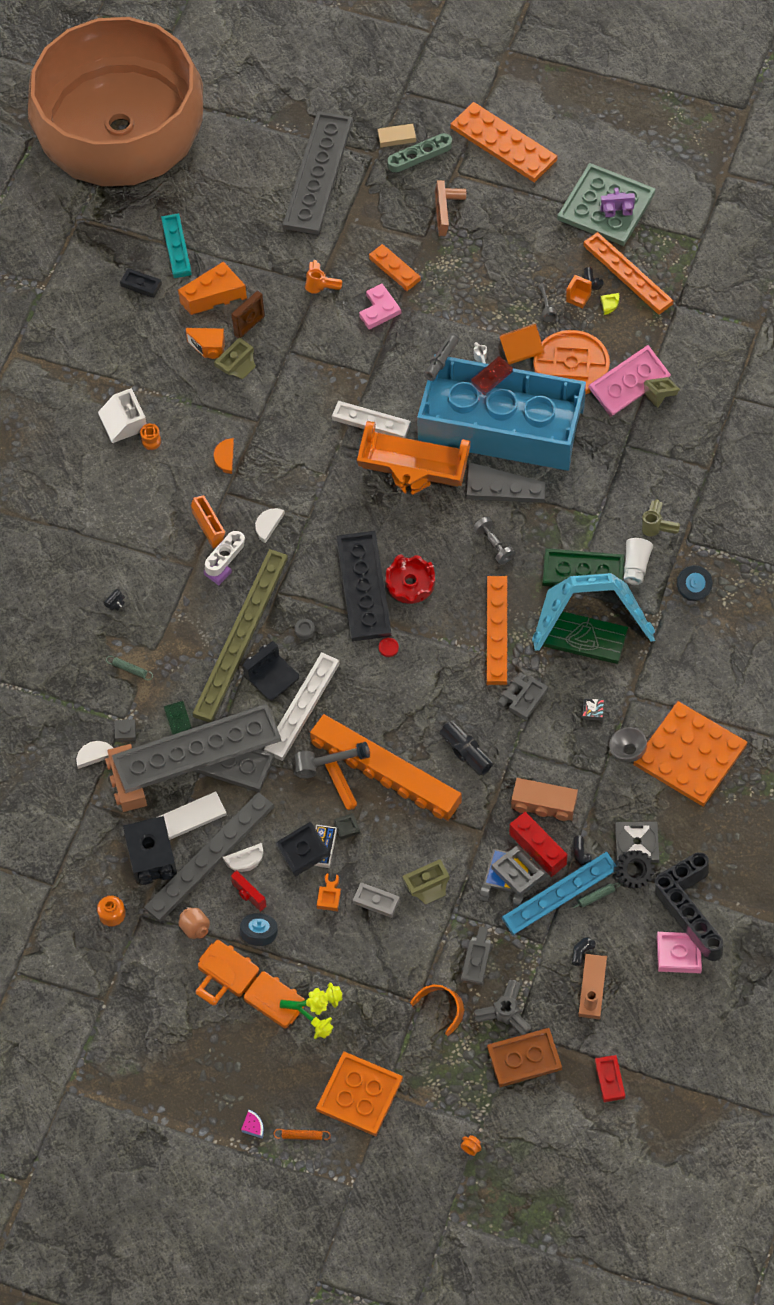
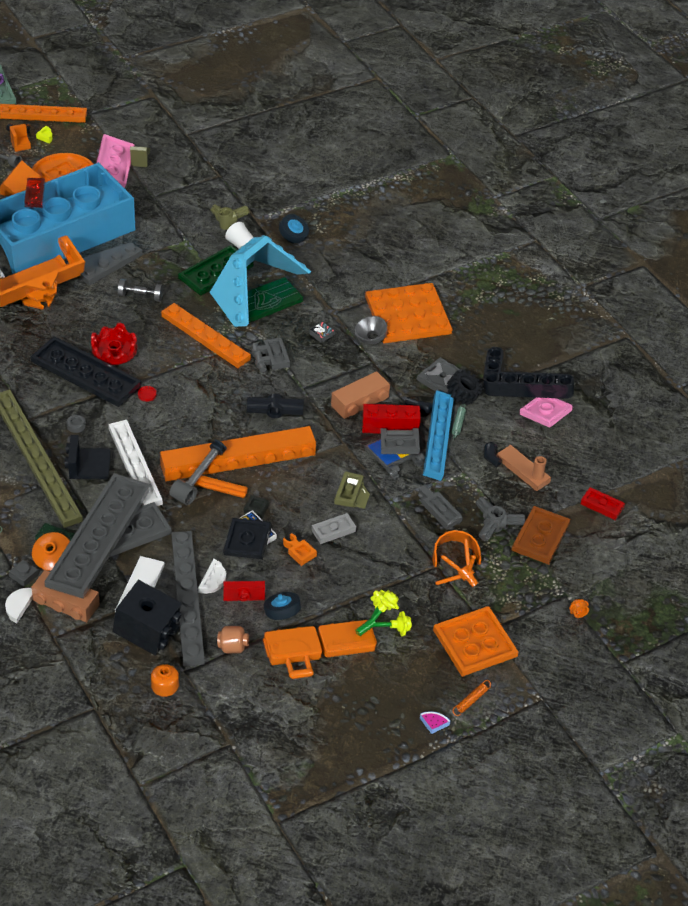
camera: 55 degrees left, 15 degrees down
(168, 725) = (47, 559): none -> orange dish
(423, 1032) = (466, 572): none -> orange plant

